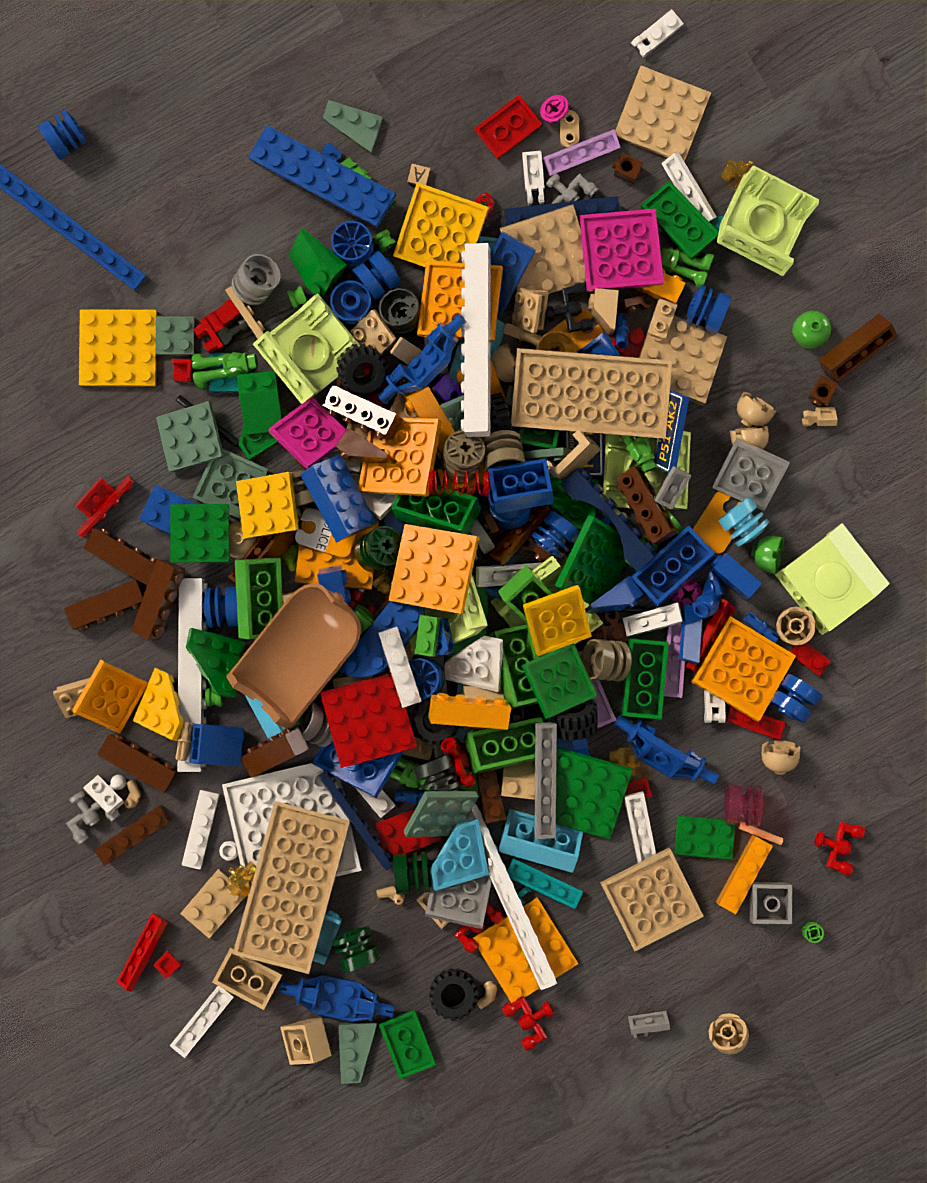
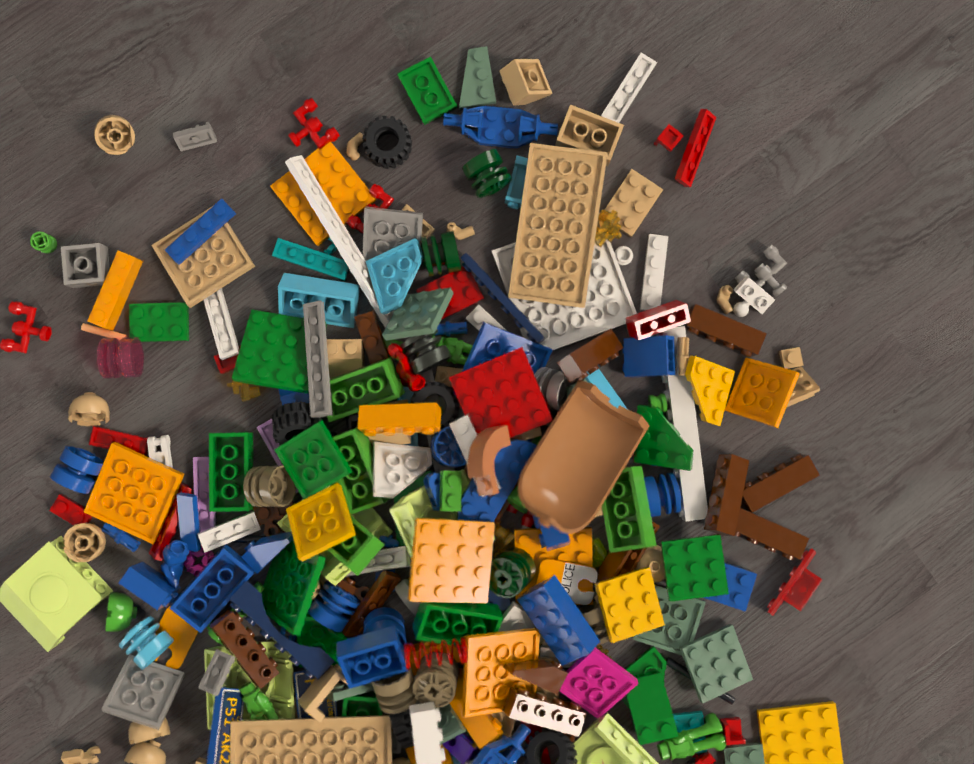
camera: 175 degrees right, 0 degrees up
(74, 727) = (791, 358): none -> tan plate
(132, 835) = (720, 259): reddish brown brick -> none
(203, 780) = (657, 319): none -> red brick
(391, 665) = (482, 458): none -> nougat arch
(489, 524) = (401, 610): reddish brown plate -> none
(651, 924) = (200, 231): none -> blue plate
(662, 755) = (205, 397): blue plate -> none

